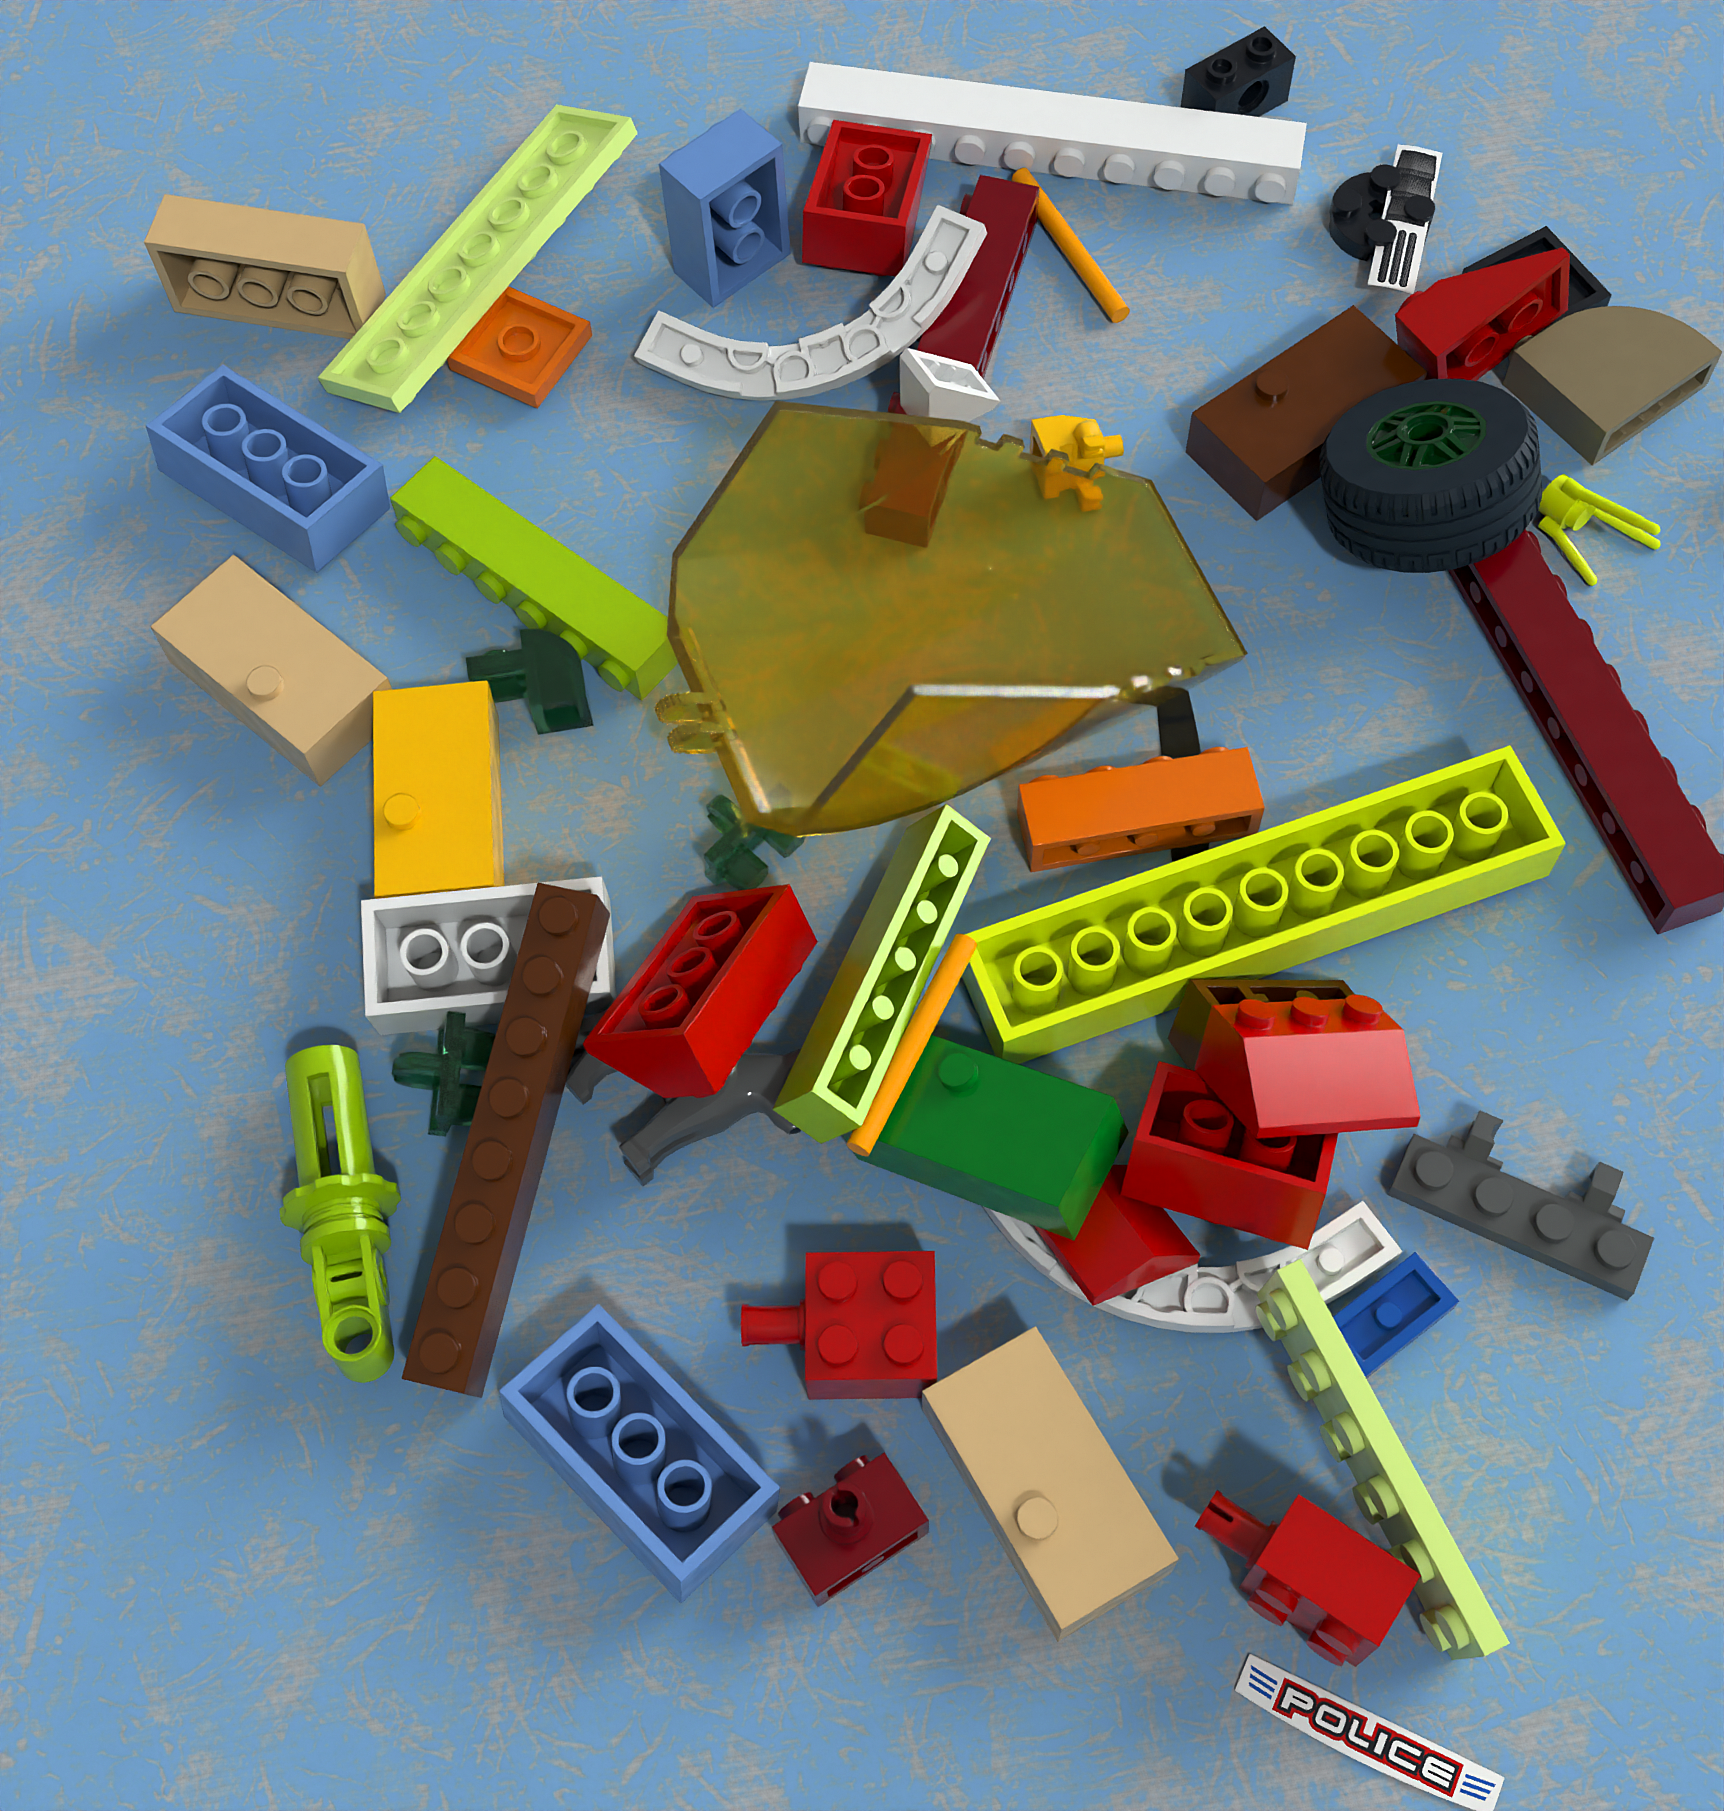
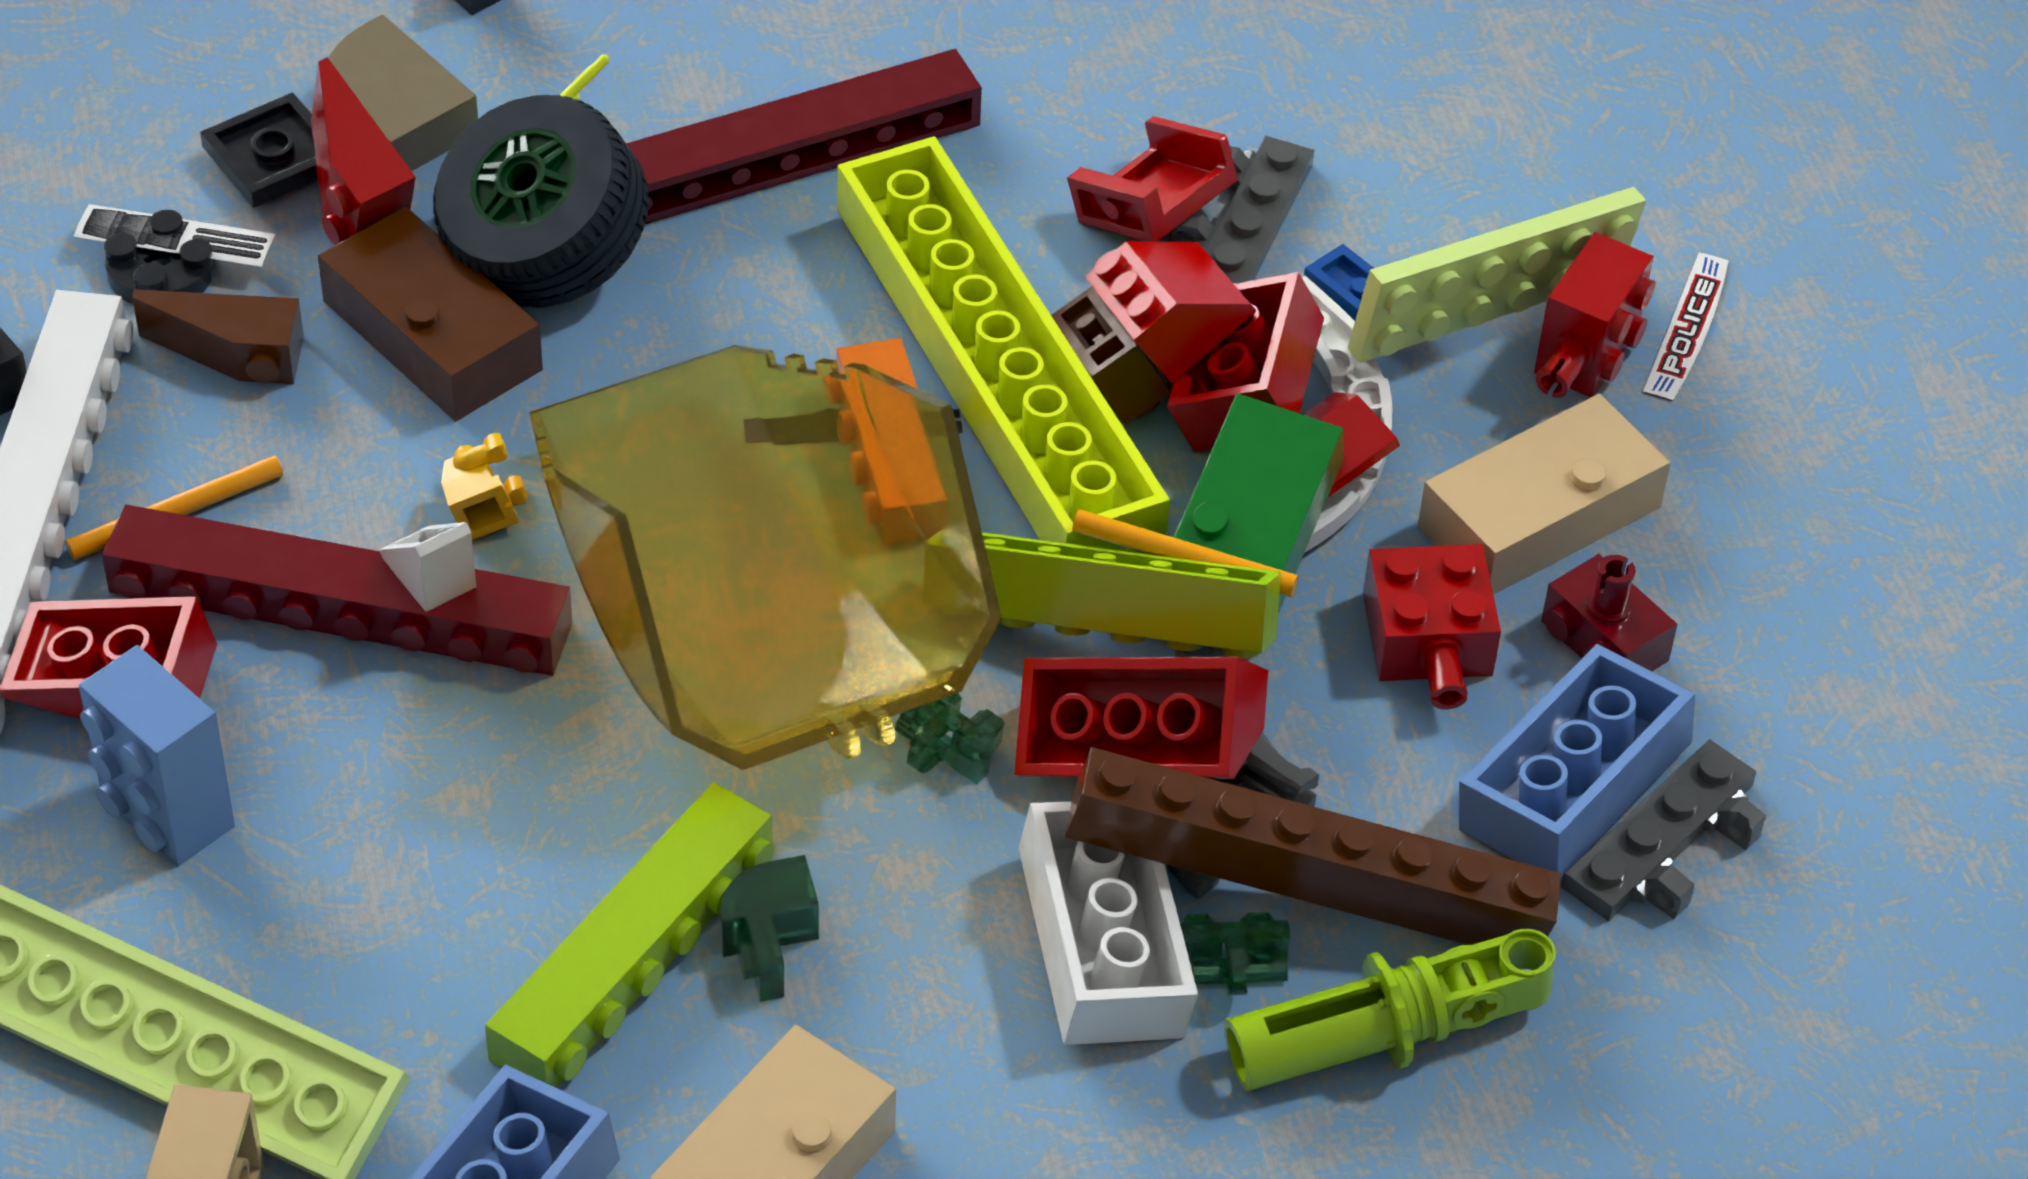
camera: 100 degrees left, 15 degrees down
(436, 790) = (931, 987): yellow brick -> none
(521, 347) = (306, 977): orange plate -> none
(598, 1588) = (1640, 849): none -> dark grey hinge
(836, 354) = (347, 675): white plate -> none
(1271, 268) = (228, 333): none -> reddish brown slope
(1539, 1096) = (1160, 186): none -> red panel

